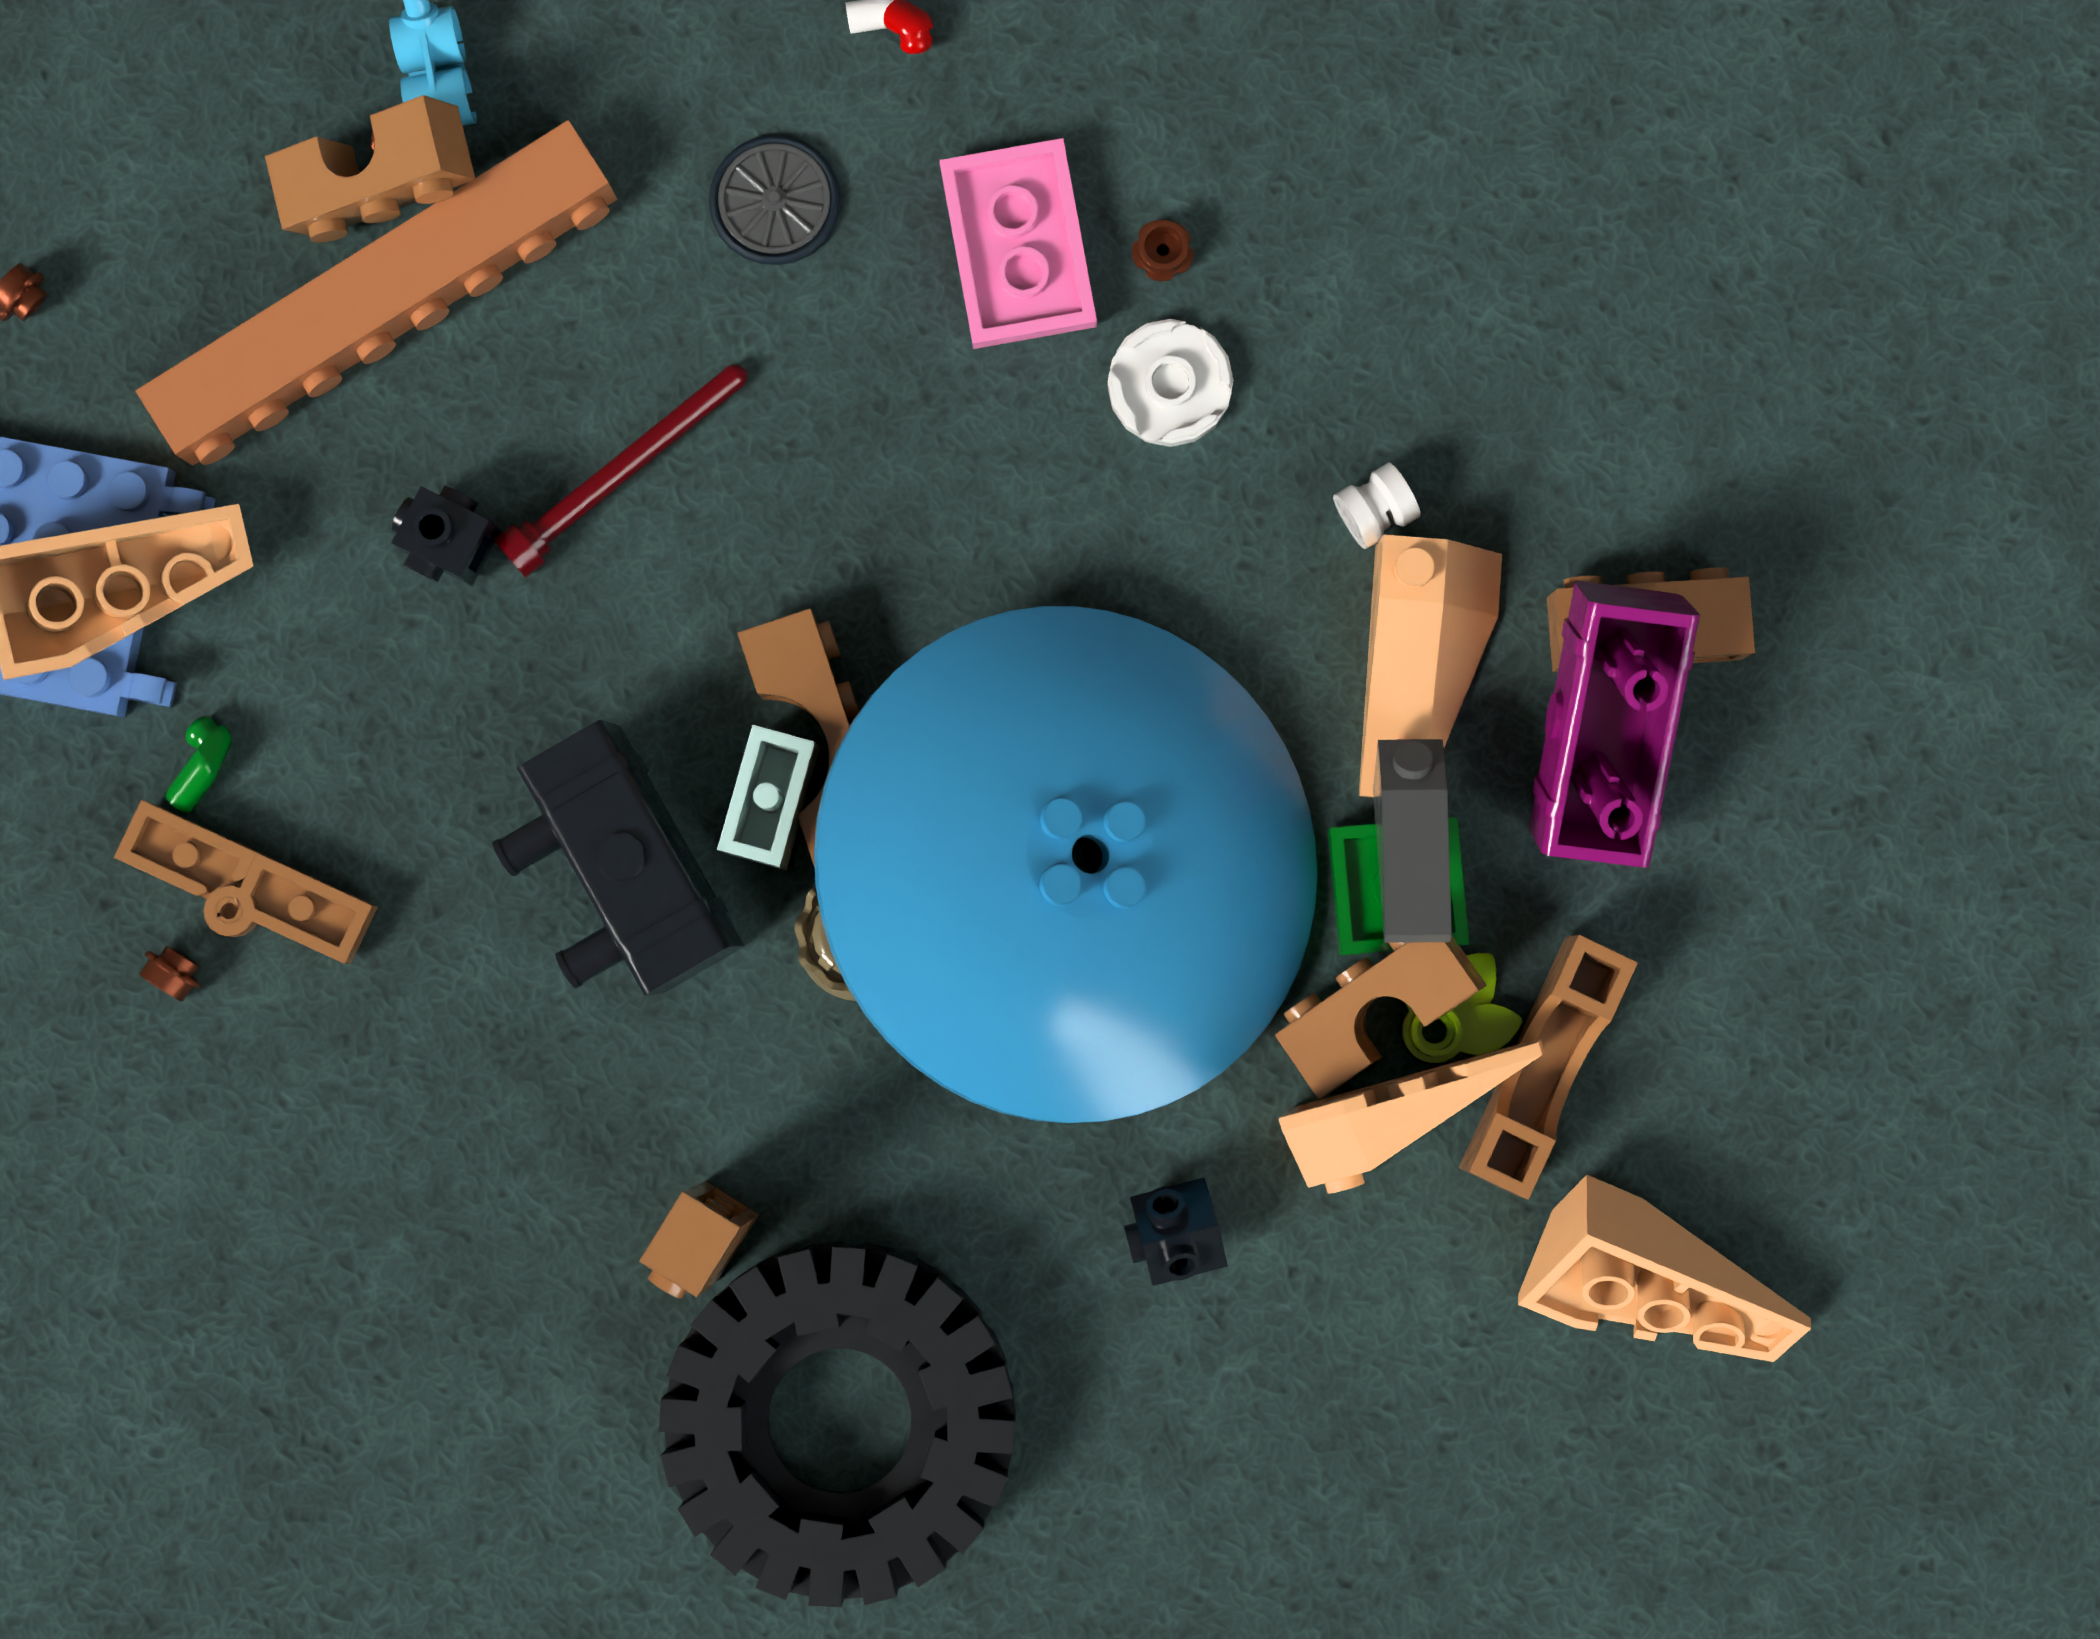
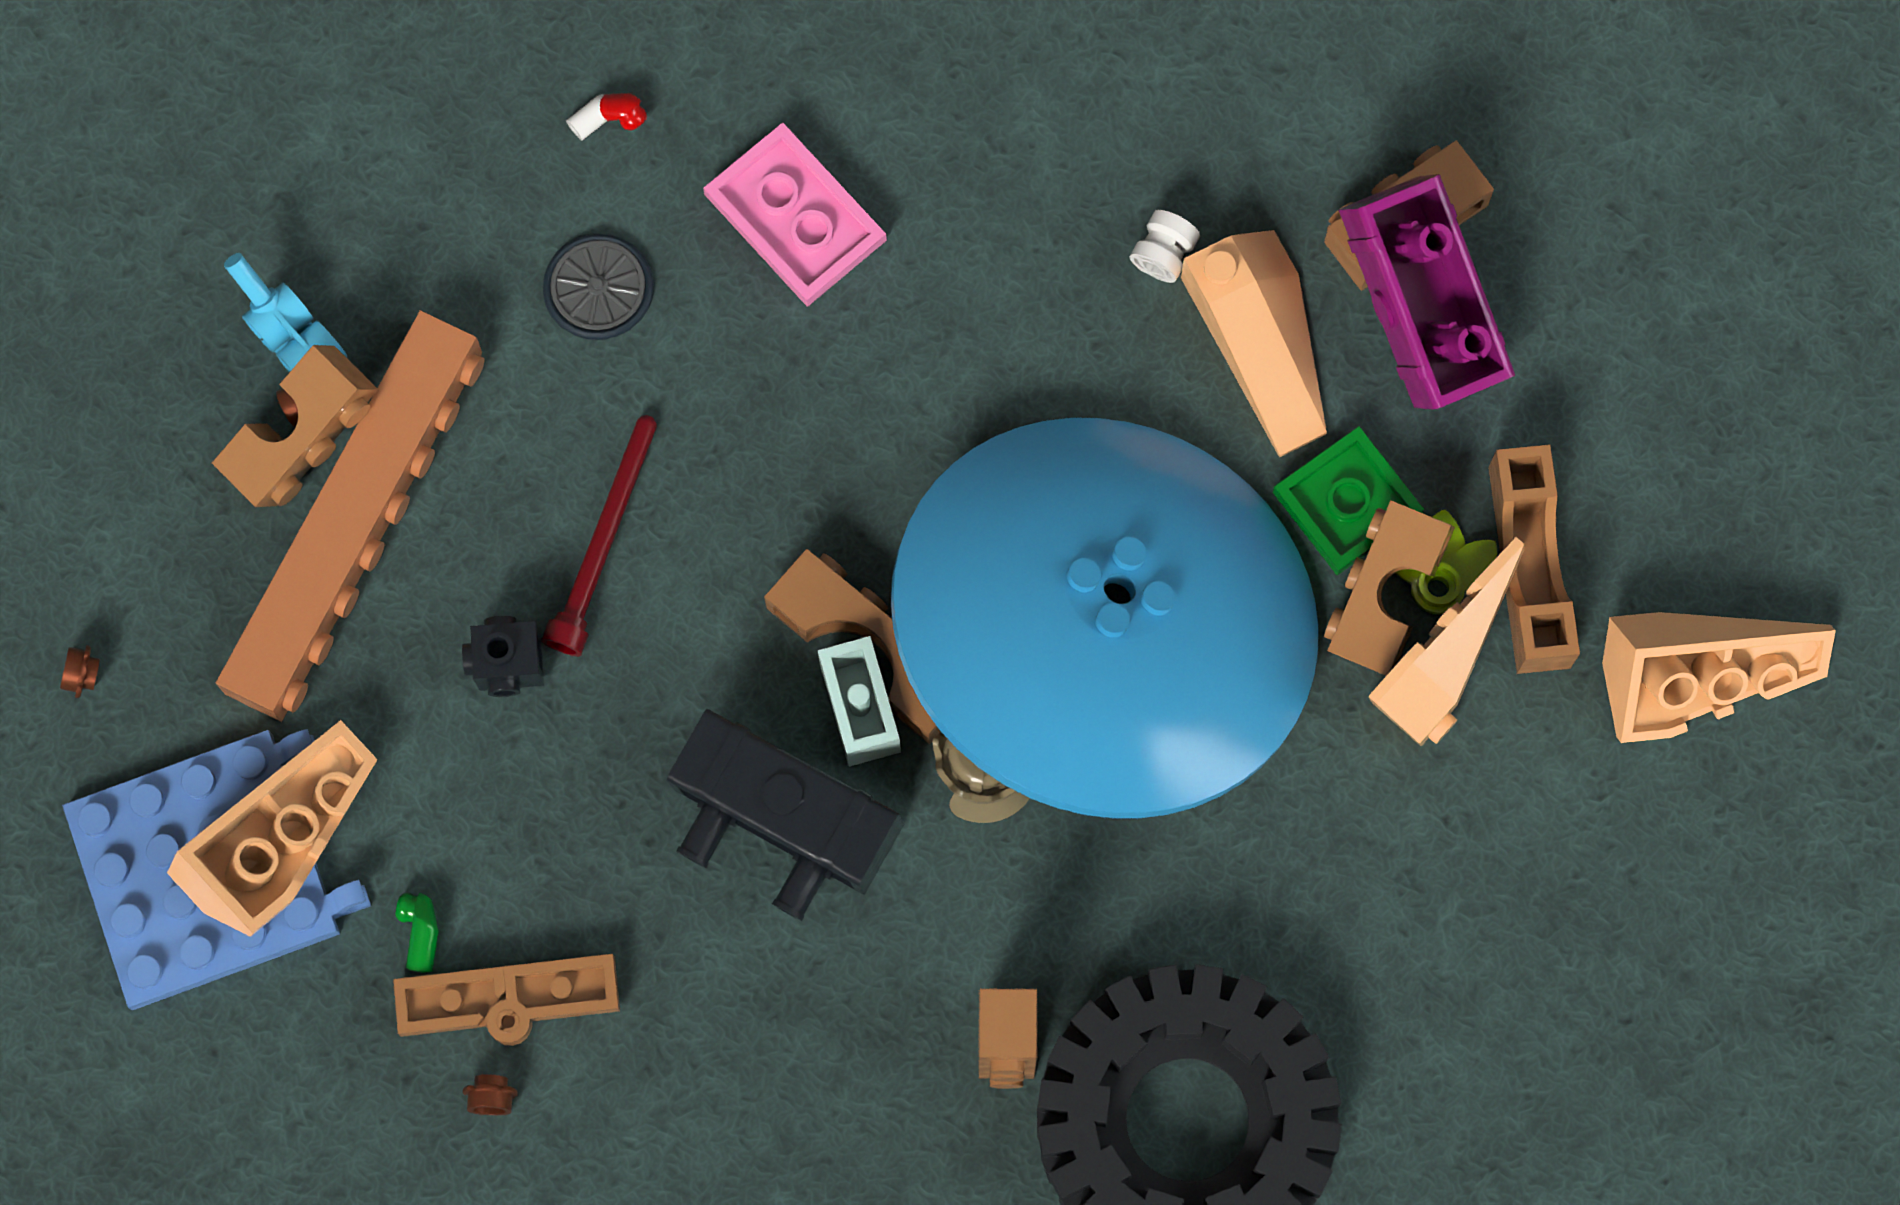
camera: 30 degrees left, 10 degrees down
(1162, 405) = (963, 267): white tile -> none
(1168, 234) = (897, 147): copper plate -> none
(1176, 1232) = (1345, 834): black brick -> none
(1413, 840) = (1338, 451): dark grey slope -> none

